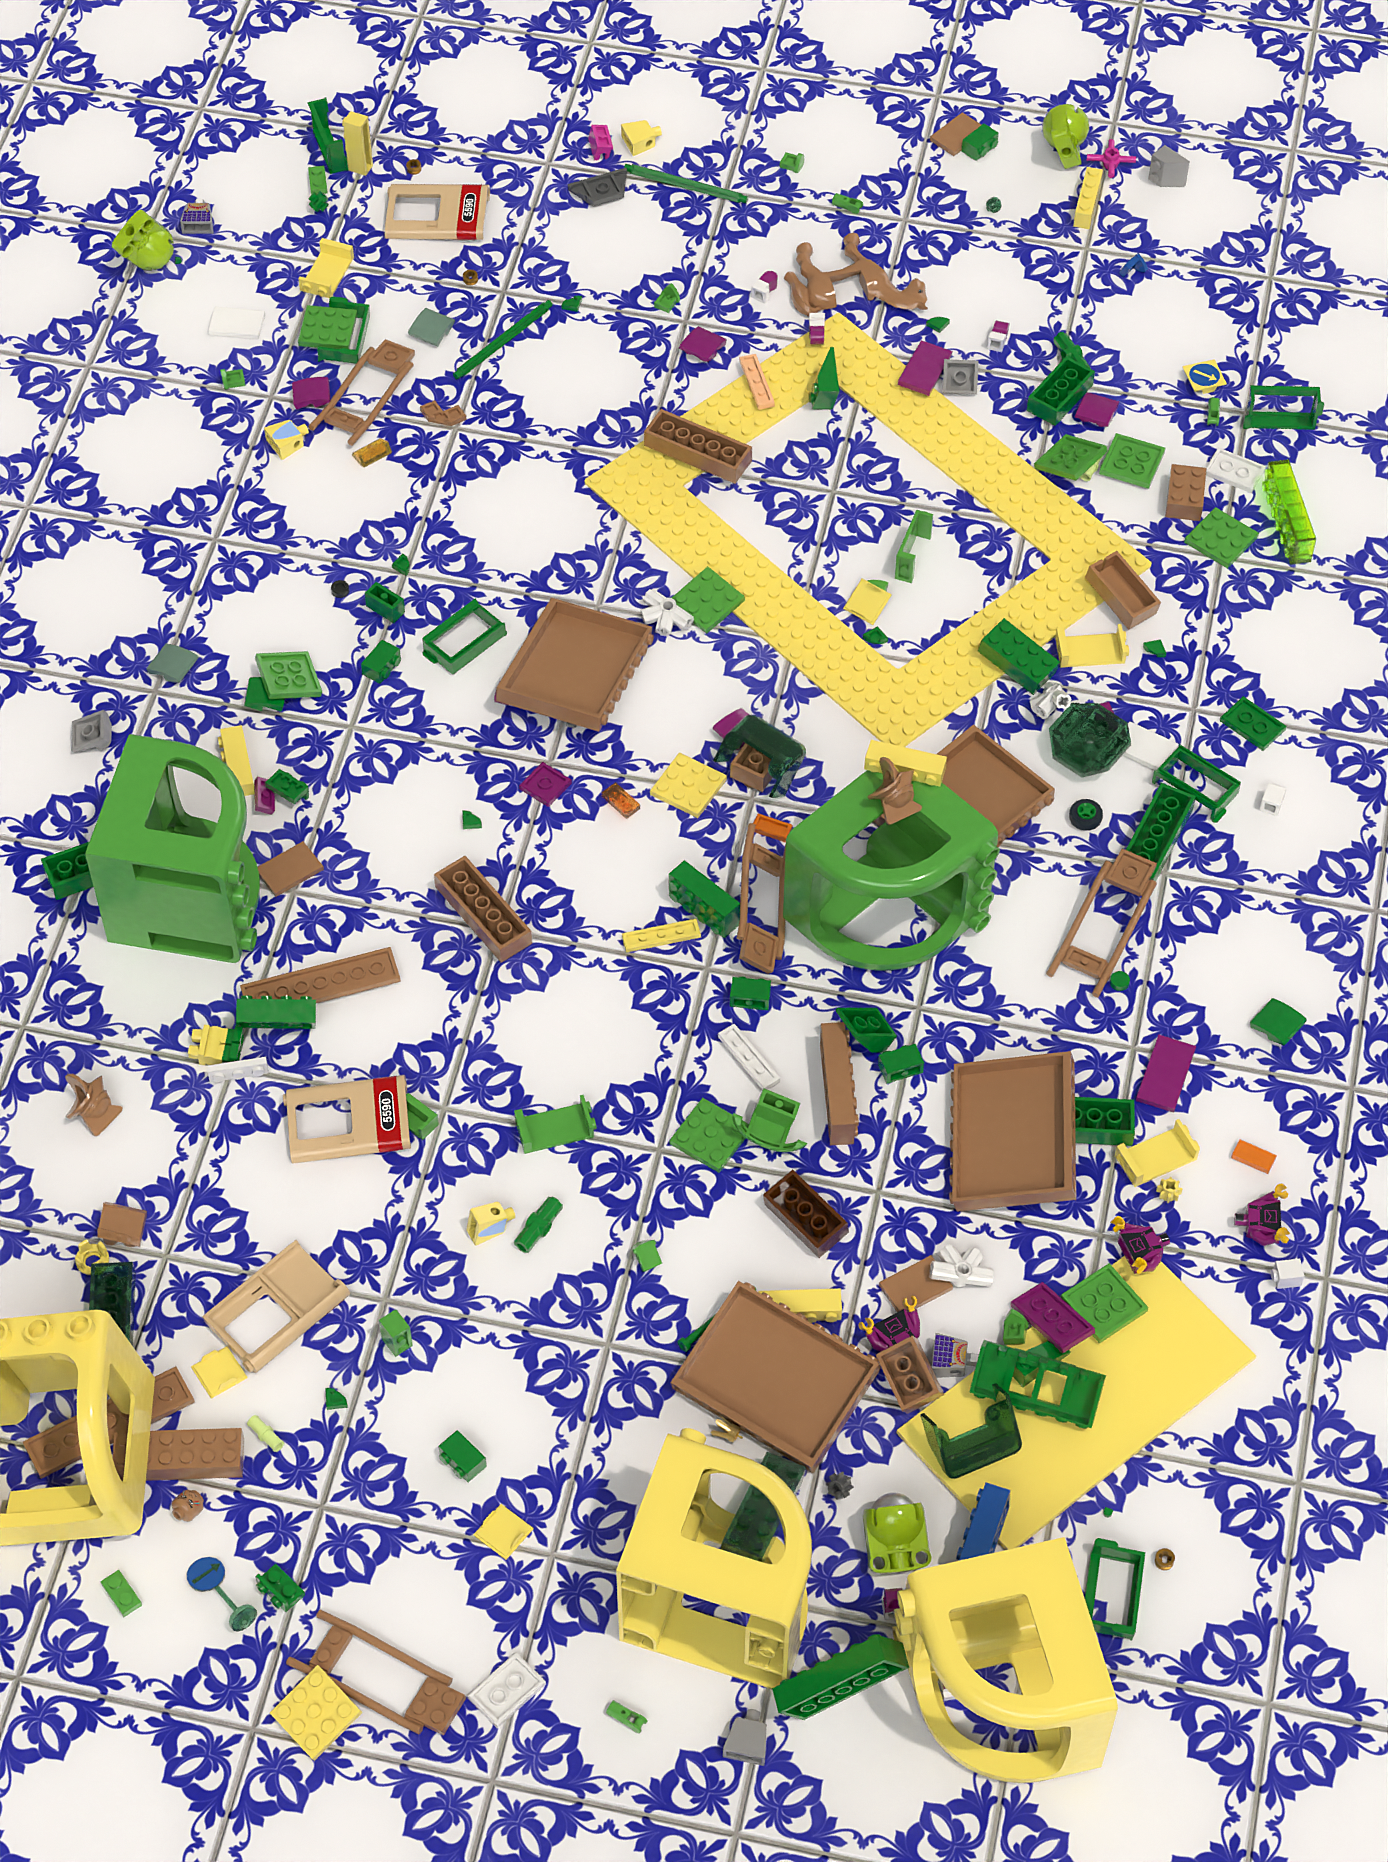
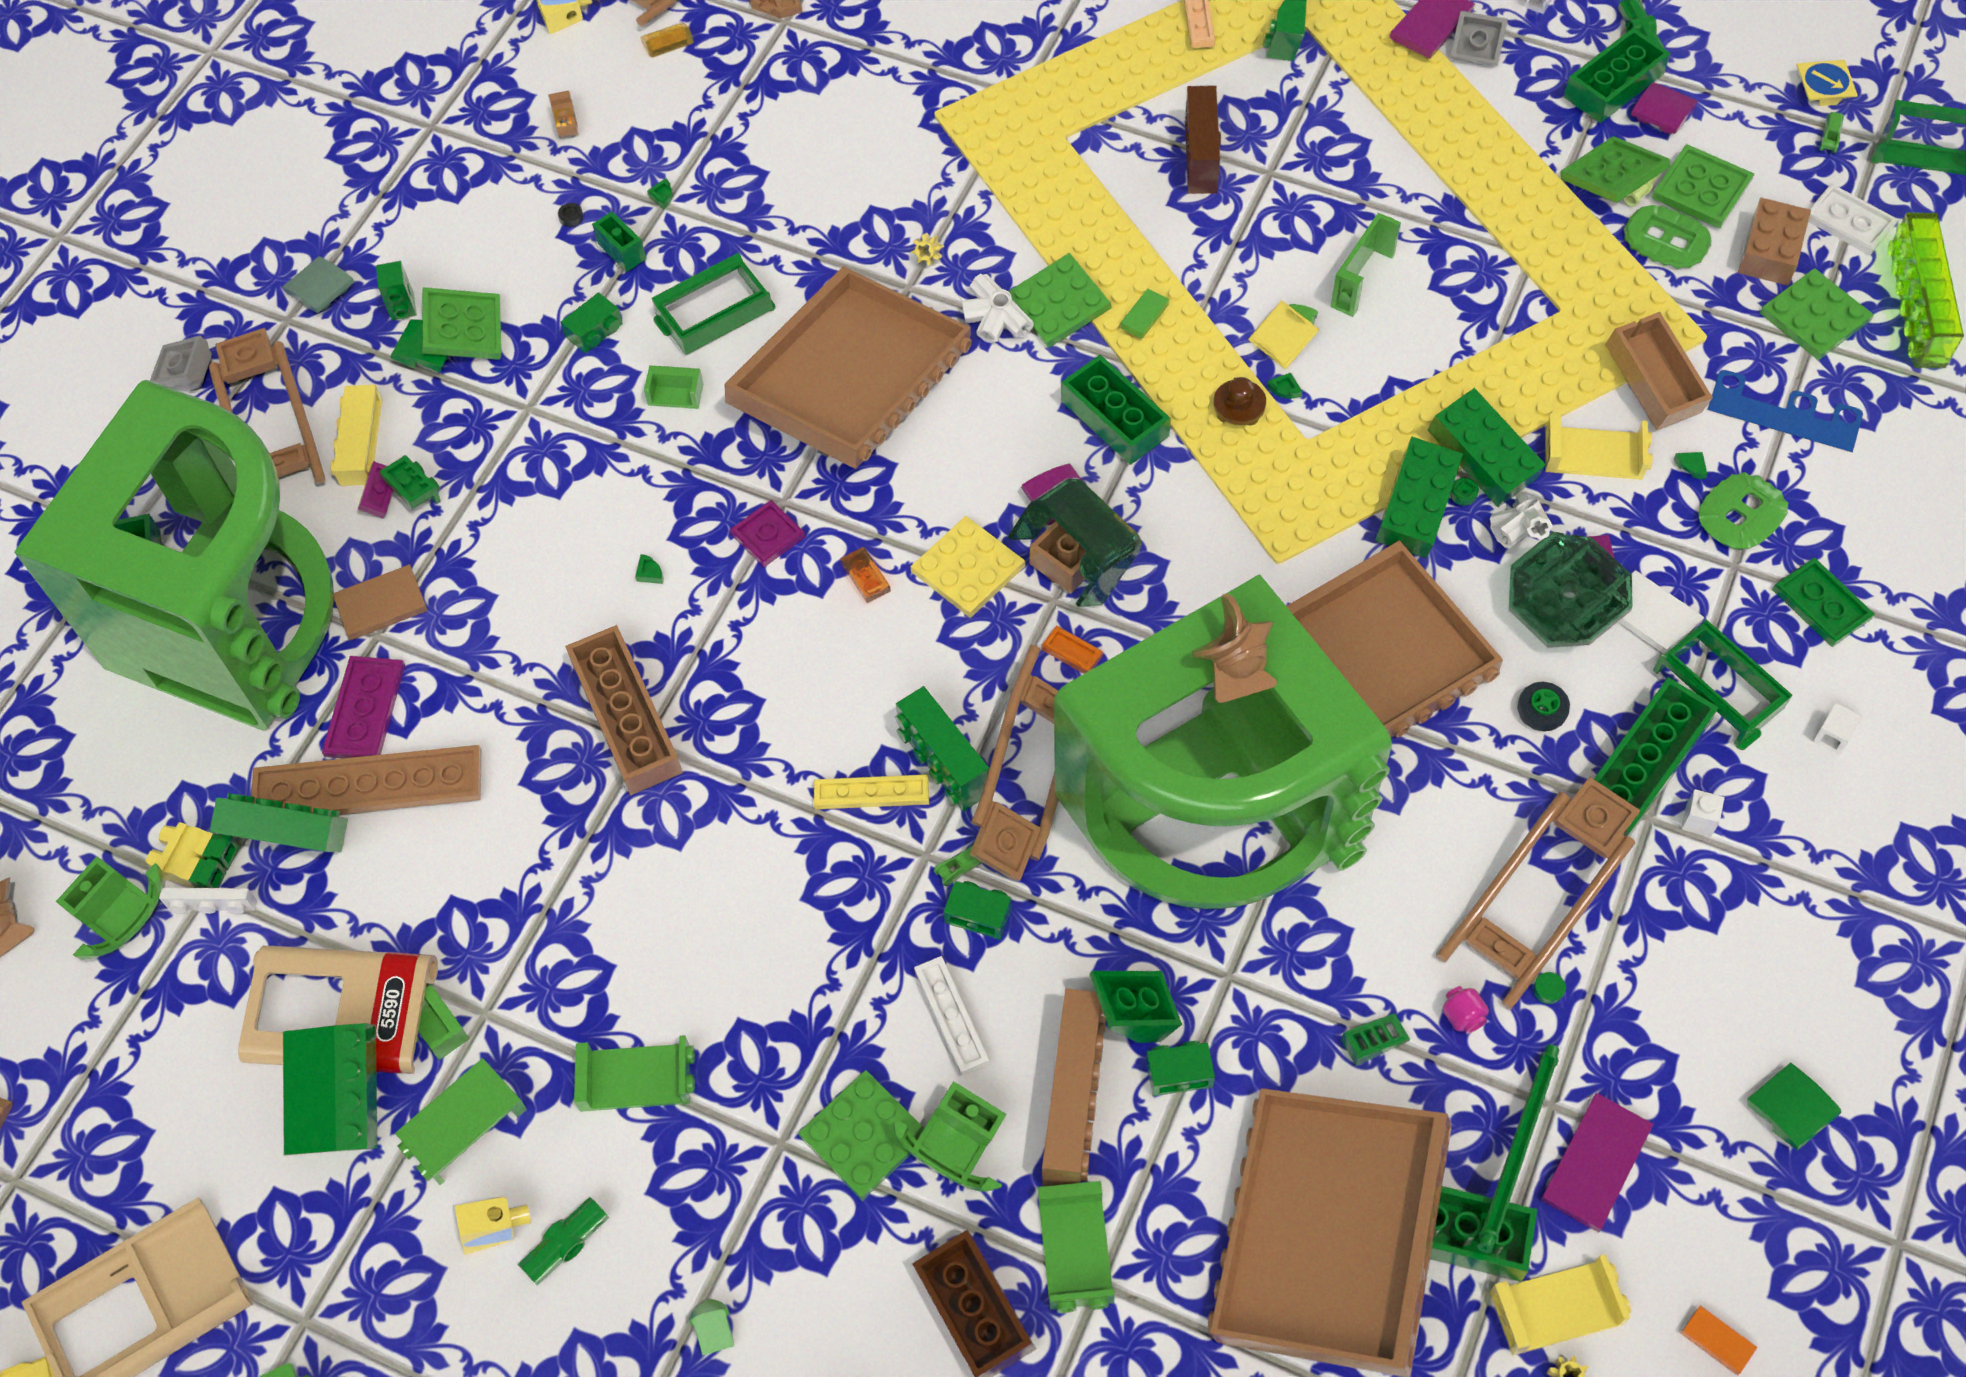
camera: 15 degrees right, 5 degrees up
(140, 719) = (253, 355): none -> medium nougat plate
(174, 1083) = (110, 905): none -> bright green piece
(234, 658) = (396, 290): none -> green brick
(300, 936) = (363, 707): none -> magenta tile
(314, 517) = (563, 113): none -> medium nougat leg
(360, 1163) = (330, 1089): none -> green slope
(449, 1168) = (457, 1119): none -> bright green panel
(453, 697) = (673, 387): none -> bright green panel
(611, 577) = (934, 249): none -> light yellow gear
(698, 446) = (1095, 85): medium nougat brick -> none
(732, 967) = (963, 862): none -> bright green bar
(764, 667) = (1115, 409): none -> green brick
(769, 600) = (1144, 313): none -> bright green tile
(782, 475) = (1202, 140): none -> reddish brown brick
(848, 650) = (1239, 402): none -> reddish brown plate
(858, 1172) = (1075, 1246): none -> bright green panel
(927, 767) = (1260, 600): light yellow brick -> none
(980, 694) = (1419, 496): none -> green brick
(1009, 687) = (1464, 491): none -> green tile
(1010, 1038) = (1360, 1056): none -> green slope
(1070, 1000) = (1465, 1009): none -> dark pink head
(1108, 1113) = (1490, 1232): none -> green piece
(1116, 490) = (1674, 225): none -> bright green piece
(1196, 862) = (1702, 813): none -> white brick
(1204, 679) = (1759, 522): none -> bright green piece
(1213, 610) = (1788, 420): none -> blue piece

